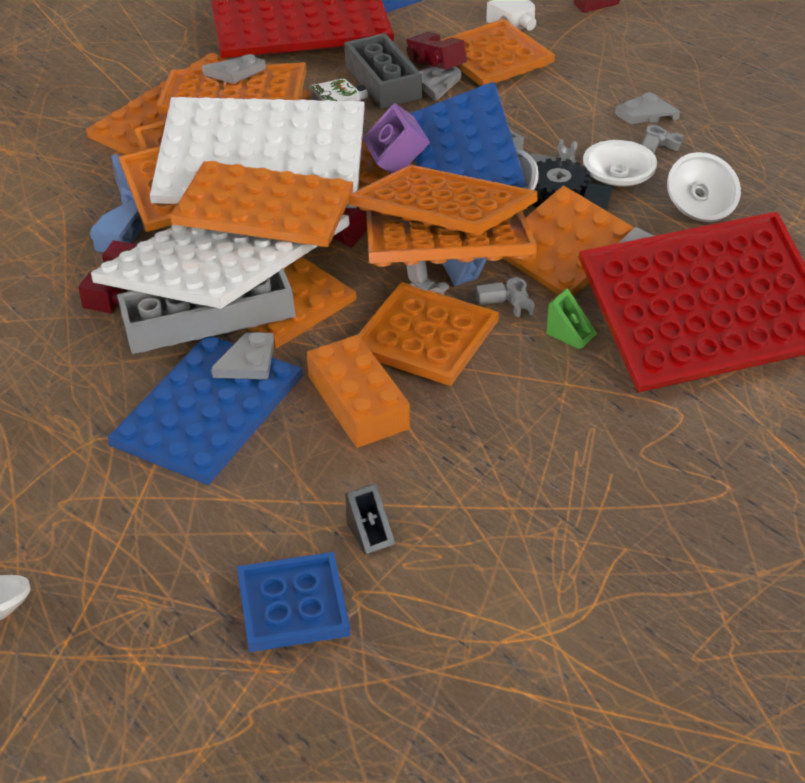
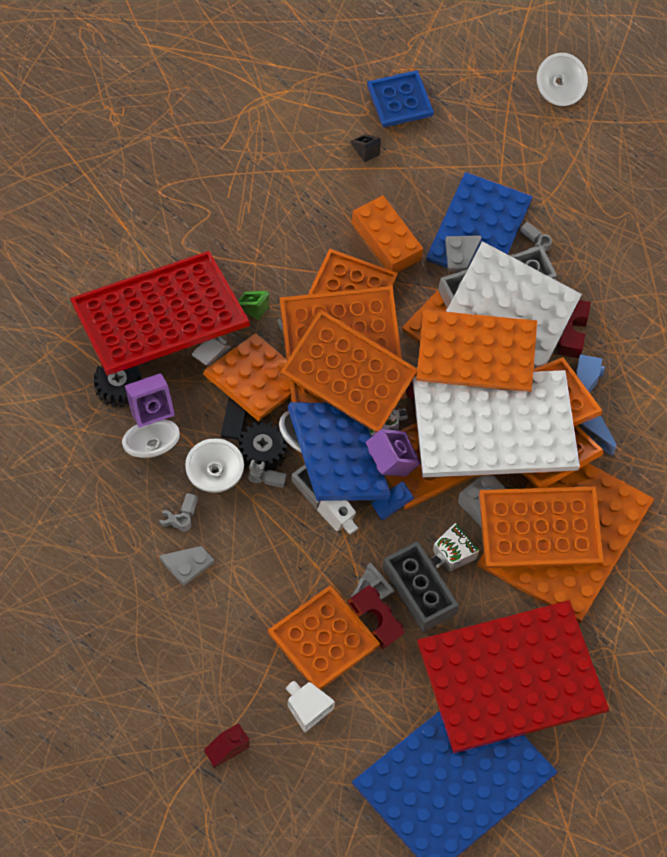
camera: 170 degrees right, 20 degrees up
(118, 380) = (536, 236): none -> light grey bar
(234, 69) = (544, 545): light grey wing -> none
(711, 206) = (149, 400): none -> medium lavender brick

